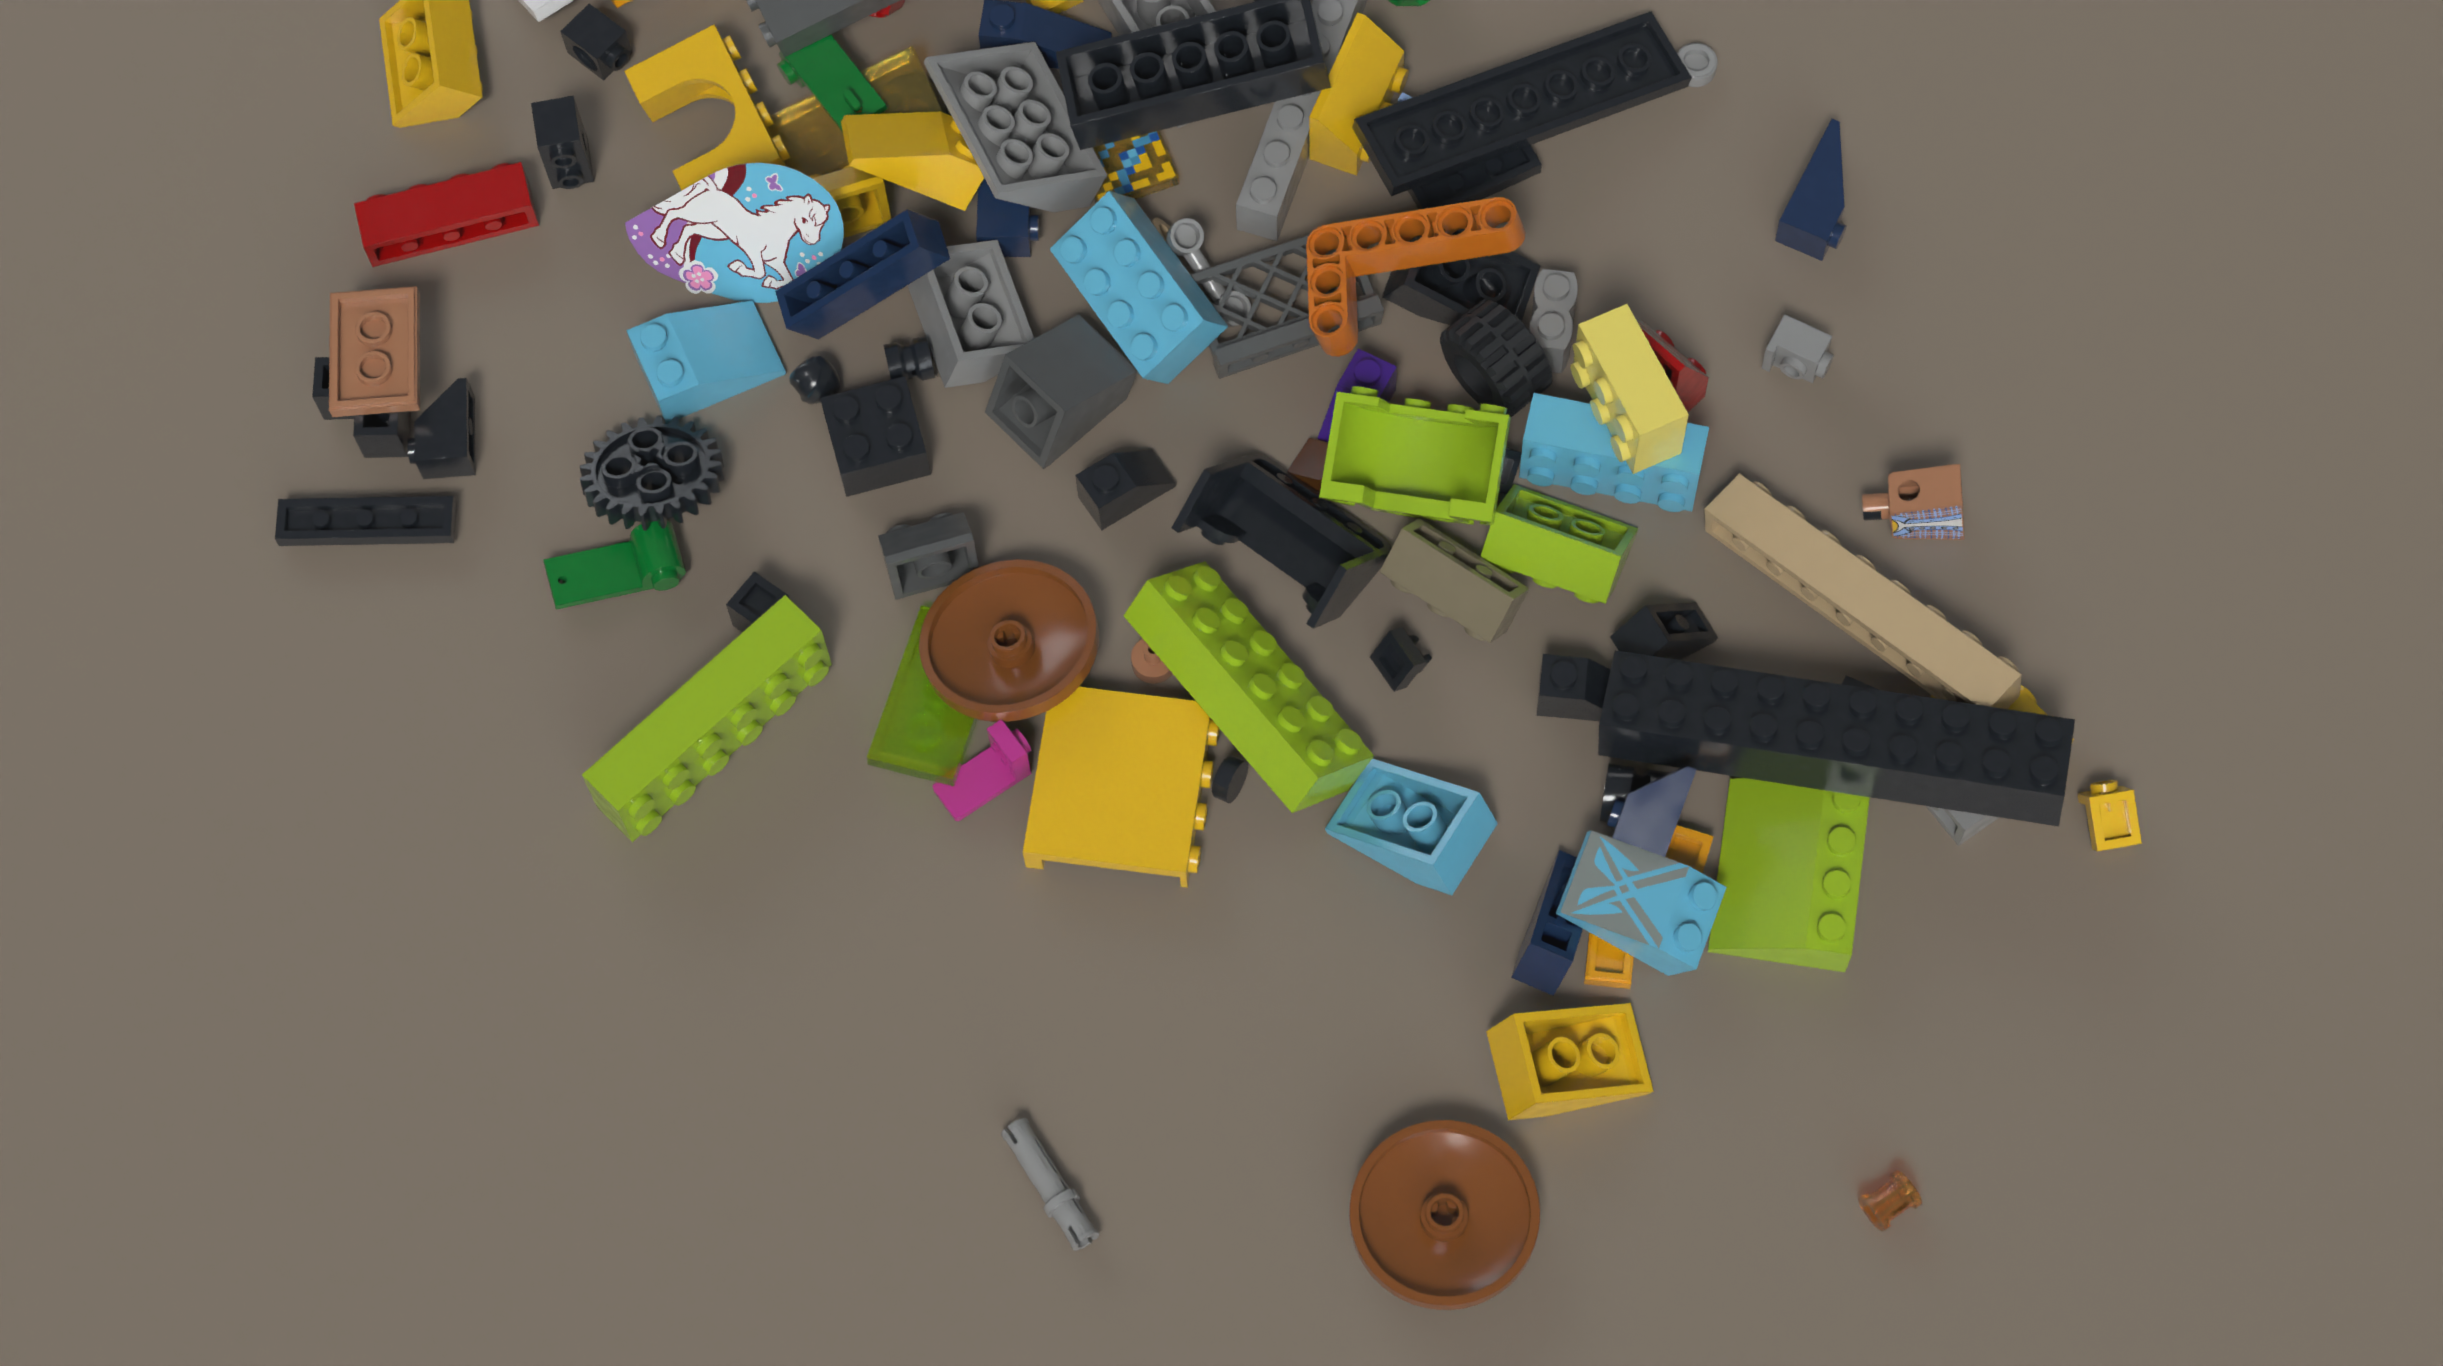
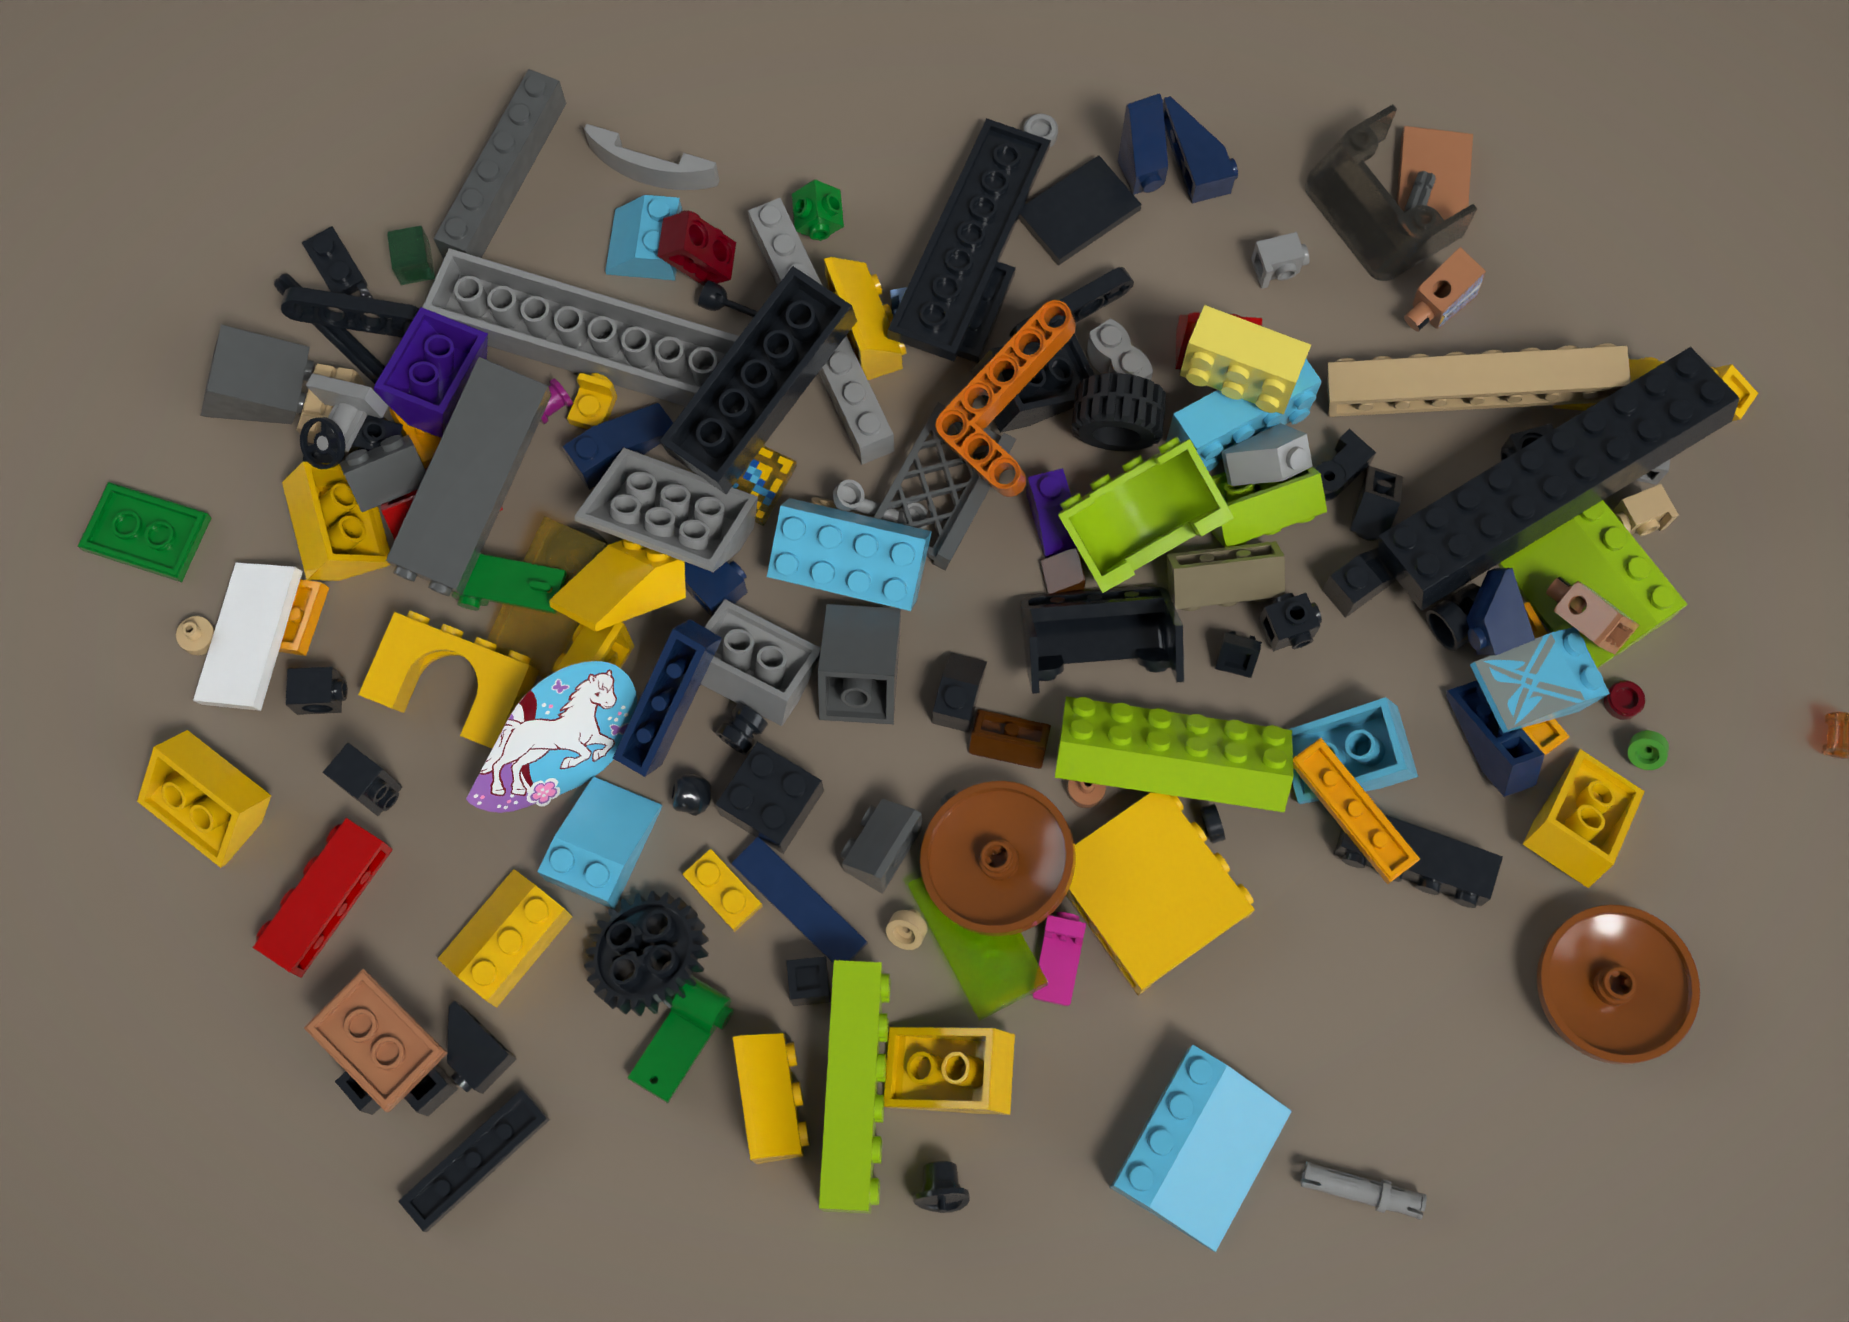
camera: 45 degrees left, 5 degrees up
(555, 371) = (505, 938): none -> yellow slope
(634, 667) = (770, 1097): none -> yellow slope
(702, 867) = (941, 1189): none -> black piece
(766, 481) = (722, 890): none -> yellow plate
(806, 782) = (950, 1069): none -> yellow slope
(818, 543) = (798, 902): none -> dark blue tile
(882, 639) = (906, 929): none -> tan tile
(948, 1026) = (1201, 1148): none -> medium azure slope
(1124, 557) = (1009, 739): none -> reddish brown slope
(1355, 865) = (1354, 811): none -> light orange tile
(1382, 960) = (1443, 865): none -> black brick
(1473, 668) = (1290, 621): none -> black brick
(1579, 245) = (1091, 297): none -> black beam
(1591, 506) = (1267, 456): none -> light grey slope
(1658, 162) = (1079, 210): none -> black tile
(1662, 581) = (1346, 466): none -> black leg
(1690, 1055) = (1648, 750): none -> bright green tile
(1719, 999) = (1624, 700): none -> dark red tile
(1747, 889) = (1599, 621): none -> nougat torso
(1762, 144) = (1144, 145): none -> dark blue slope
(1907, 851) = (1646, 511): none -> tan brick
(1917, 416) = (1367, 215): none -> clear smoke windscreen
(1982, 404) = (1421, 190): none -> dark grey axle
(2032, 399) = (1443, 154): none -> nougat tile

